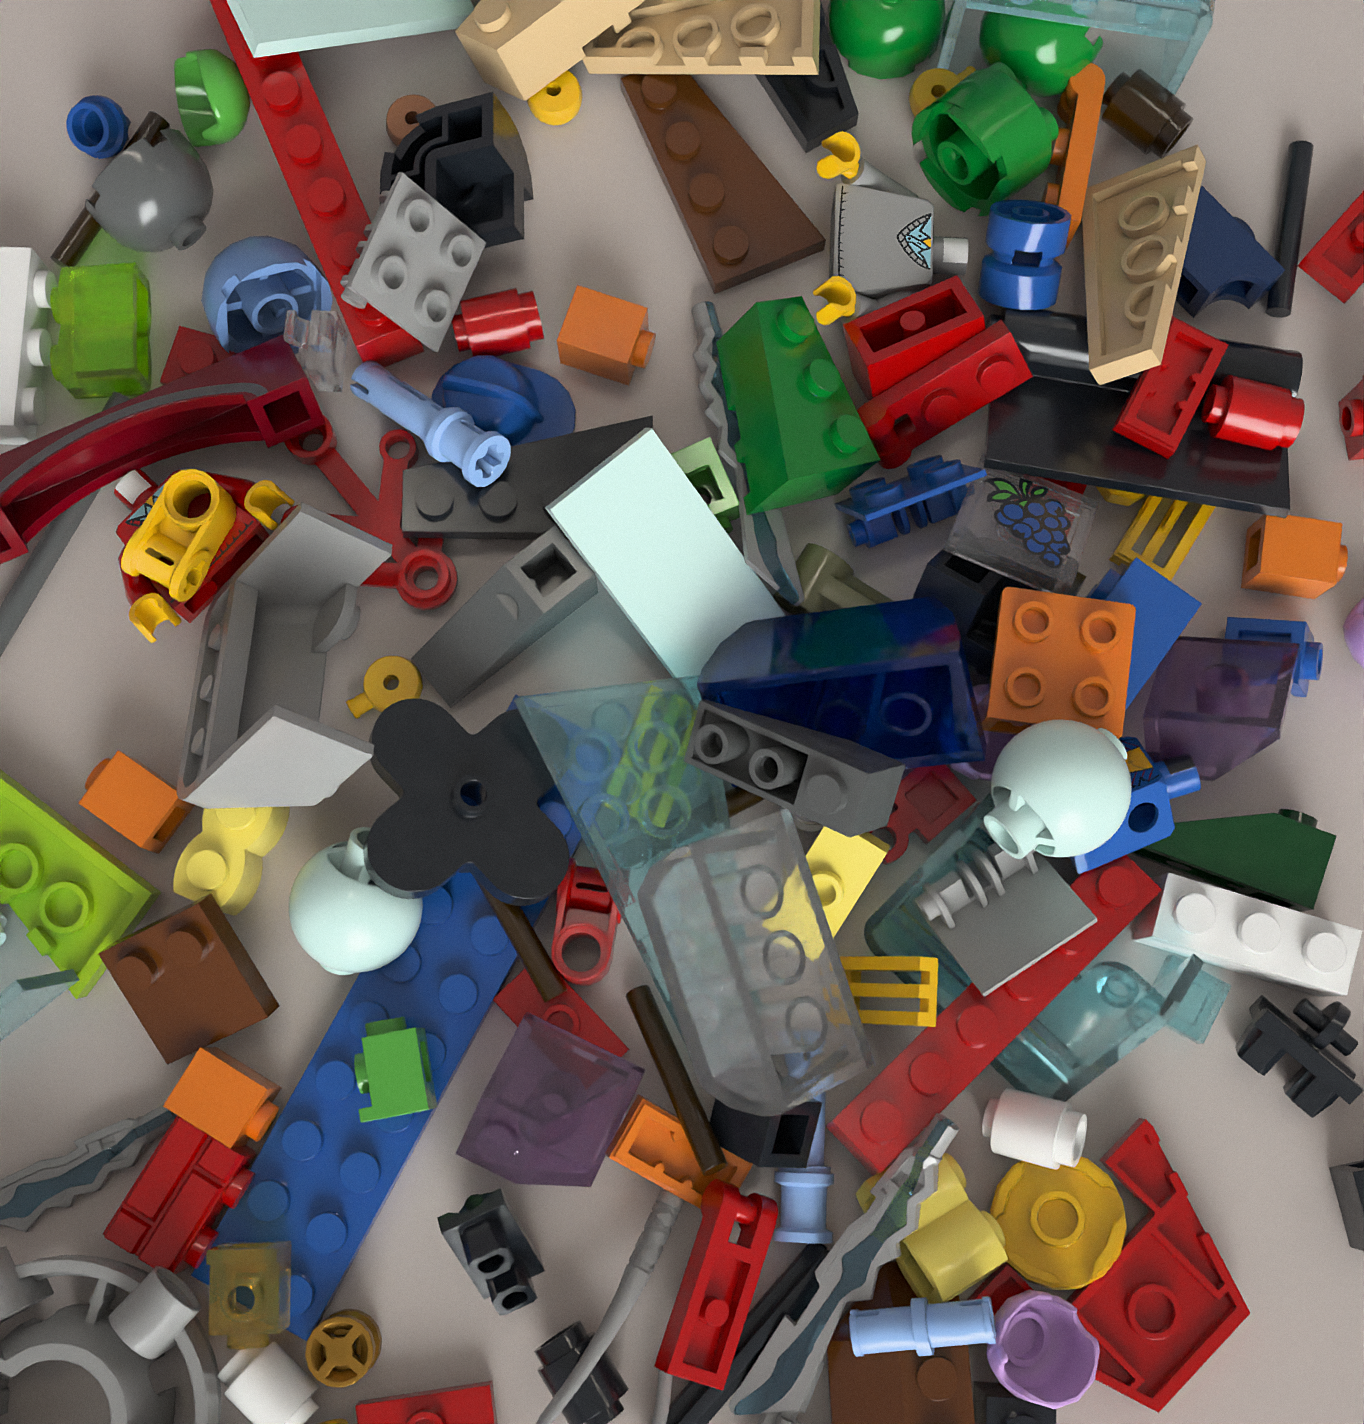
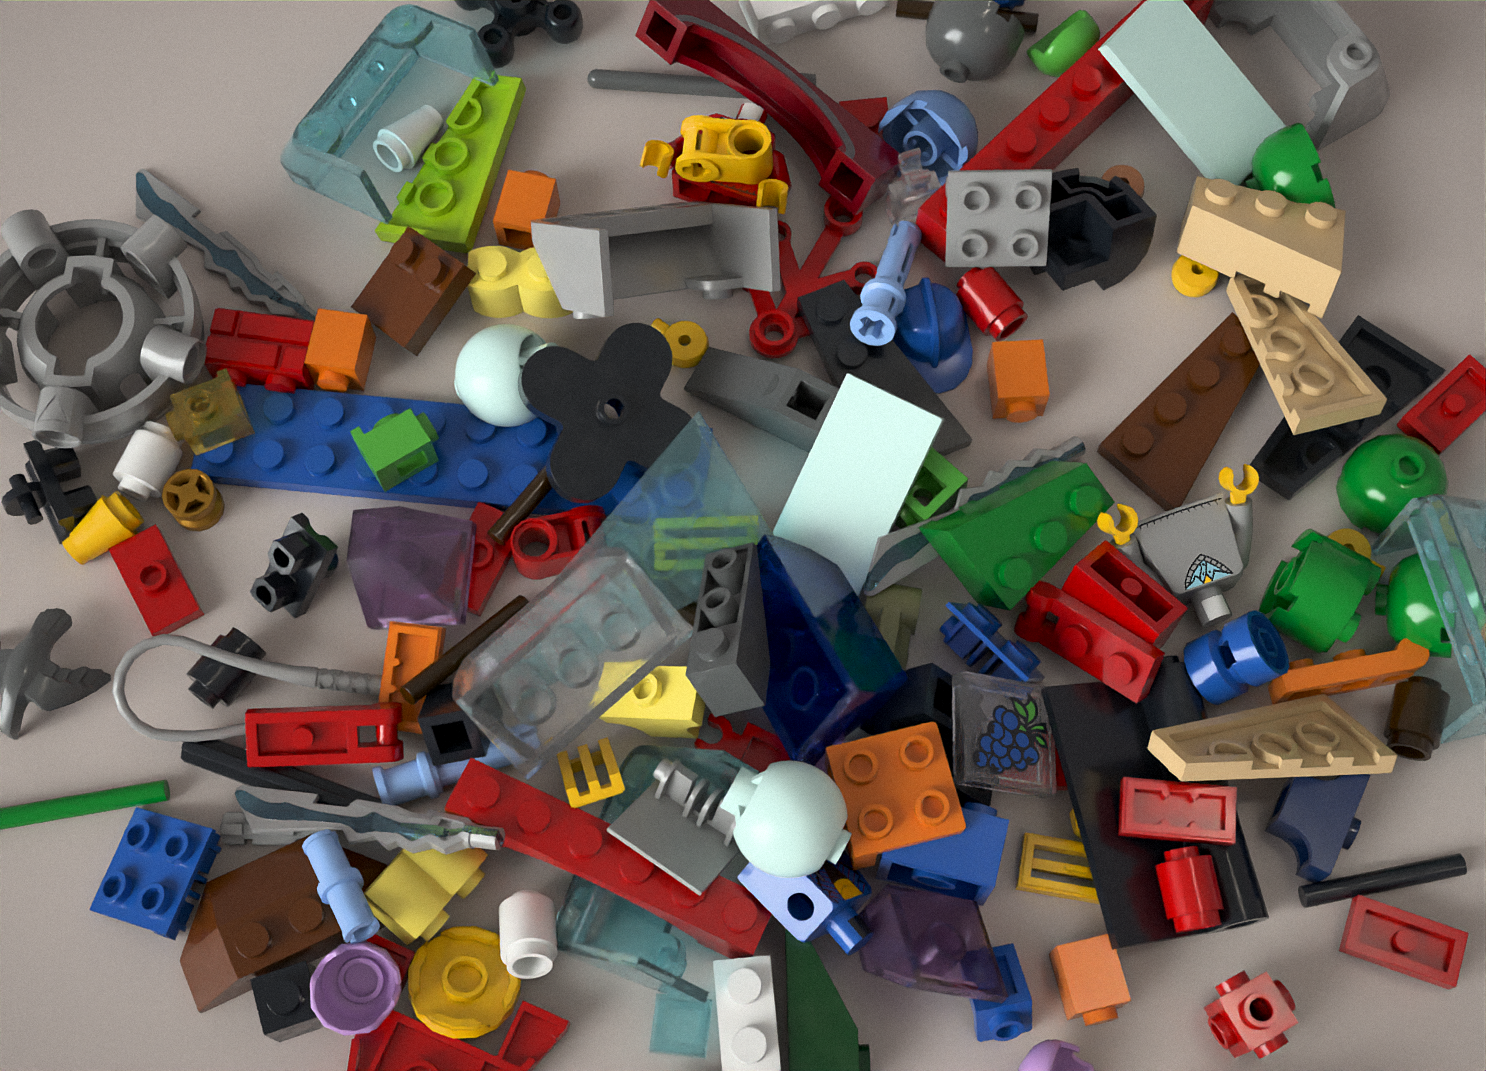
camera: 70 degrees right, 10 degrees down
(102, 330) = (858, 50): clear neon green brick -> none

